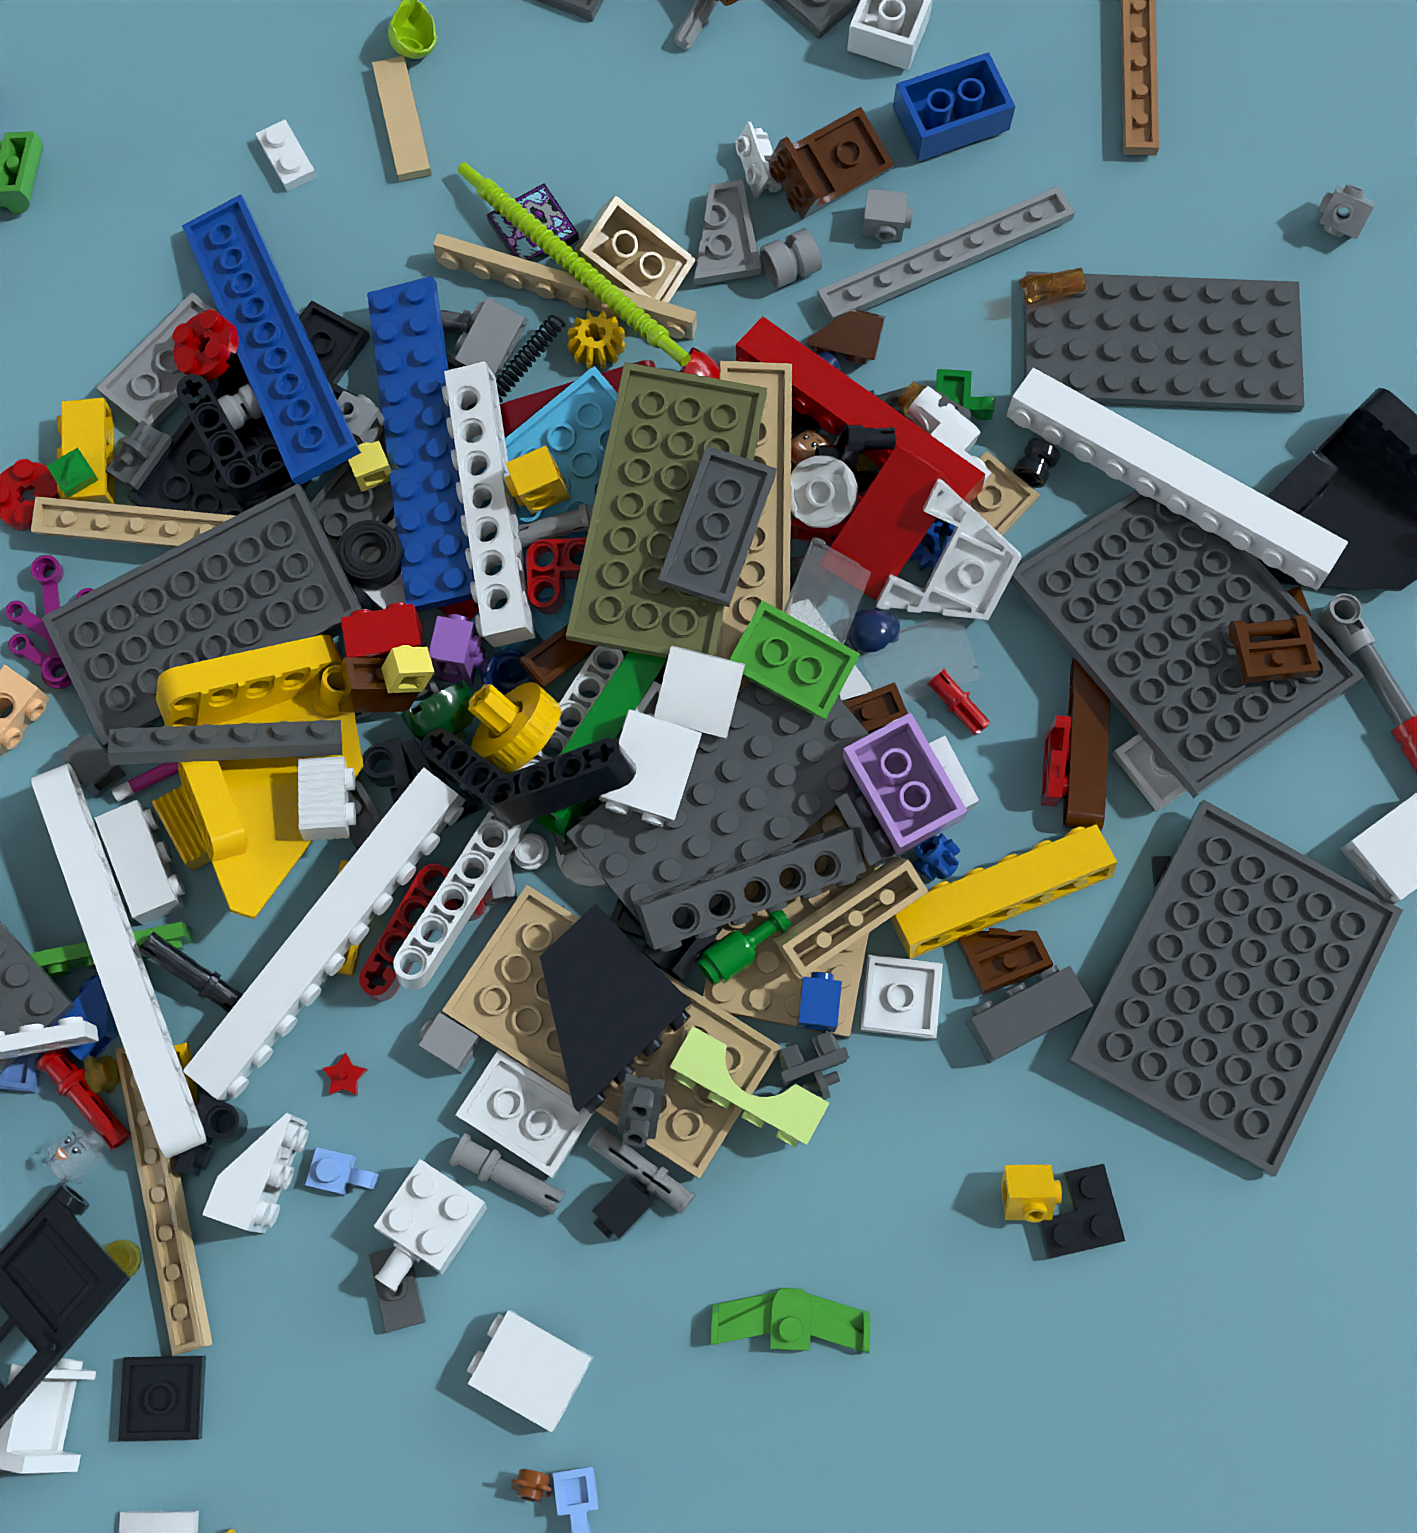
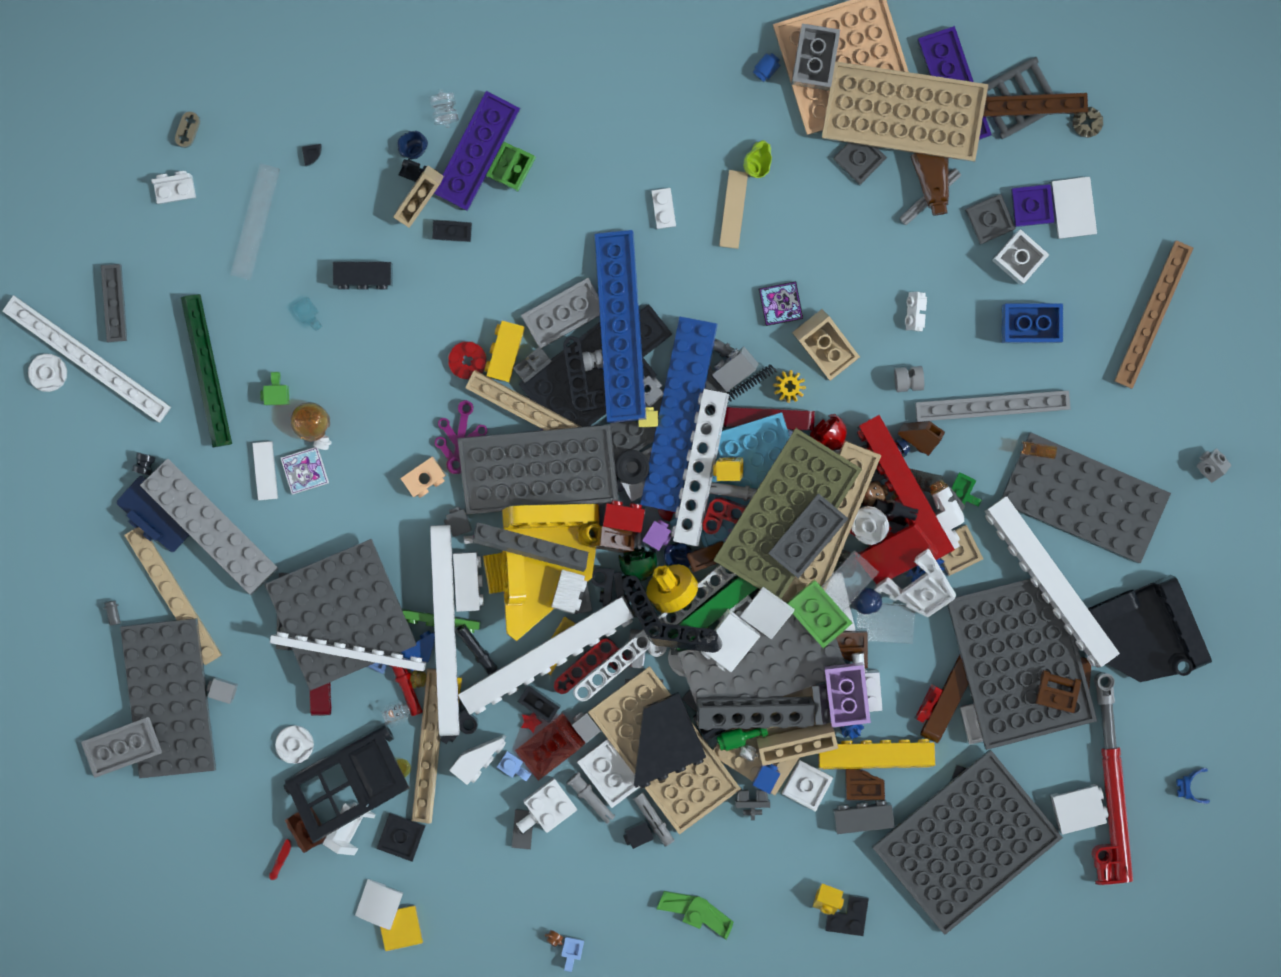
camera: 20 degrees right, 15 degrees up
(72, 472) = (496, 365): green tile -> none
(193, 335) = (576, 314): red plate -> none
(344, 1029) = (539, 703): none -> black brick
(395, 1105) = (550, 746): none -> clear red slope
(407, 669) = (630, 542): light yellow plate -> none
(528, 1370) = (570, 889): white panel -> none
(553, 283) = (790, 355): tan plate -> none
(589, 277) = (764, 276): lime hose -> none
(640, 1109) = (664, 796): dark grey hips -> none
(703, 1063) = (733, 822): yellowish green arch -> none
(727, 237) = (881, 351): light grey wing -> none
(768, 971) = (748, 753): none -> white plate
(829, 163) = (952, 331): reddish brown bracket -> none
(886, 215) = (970, 372): light grey brick -> none
(958, 702) = (895, 652): red axle -> none
(1038, 460) = (988, 542): black wheel -> none

